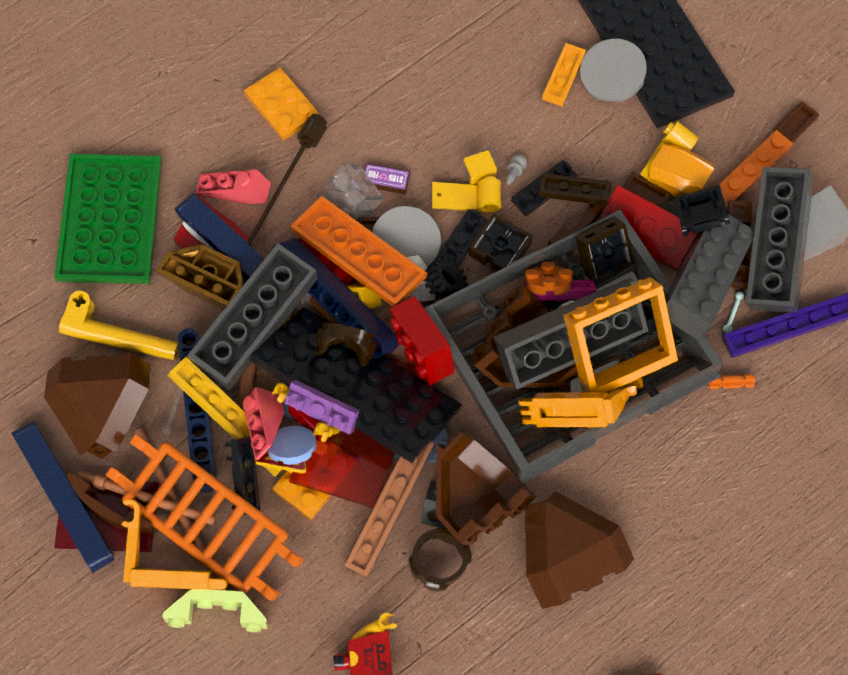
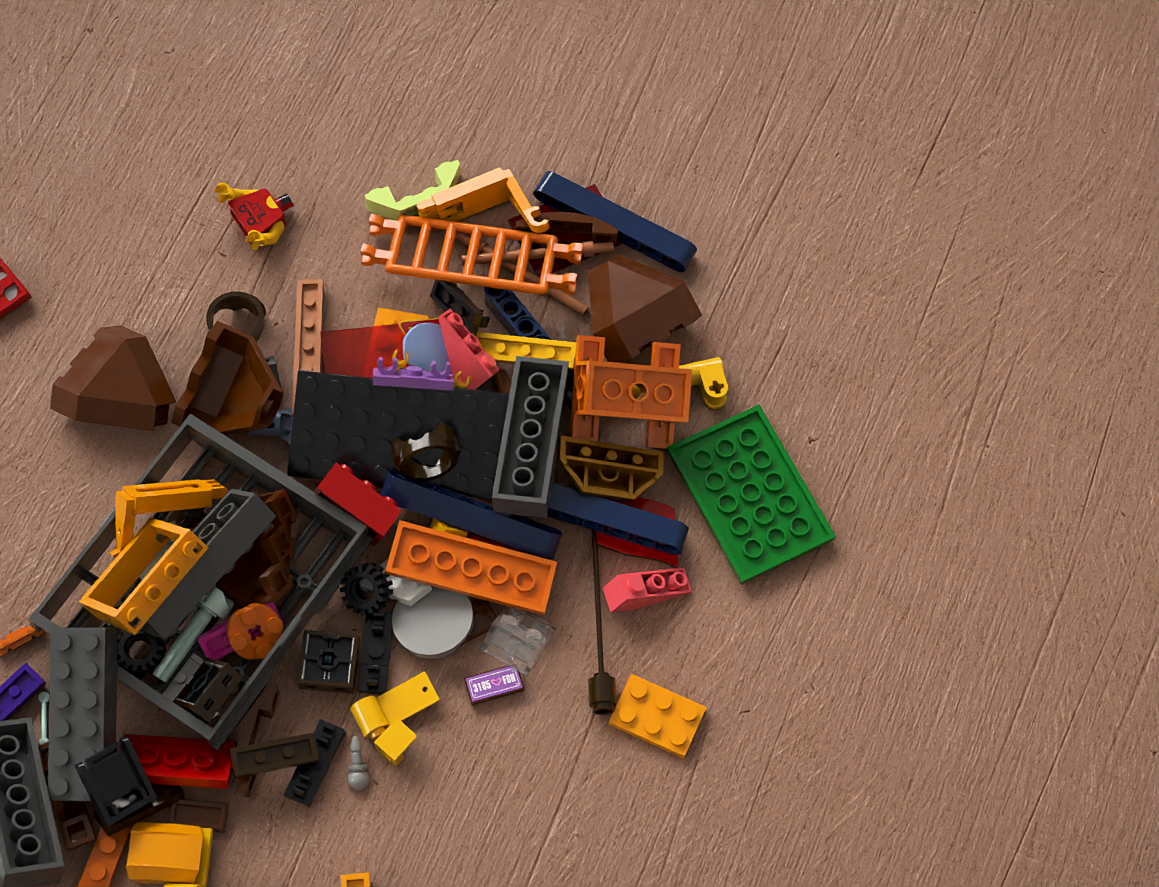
camera: 150 degrees right, 0 degrees up
(158, 305) = (606, 391): none -> orange piece

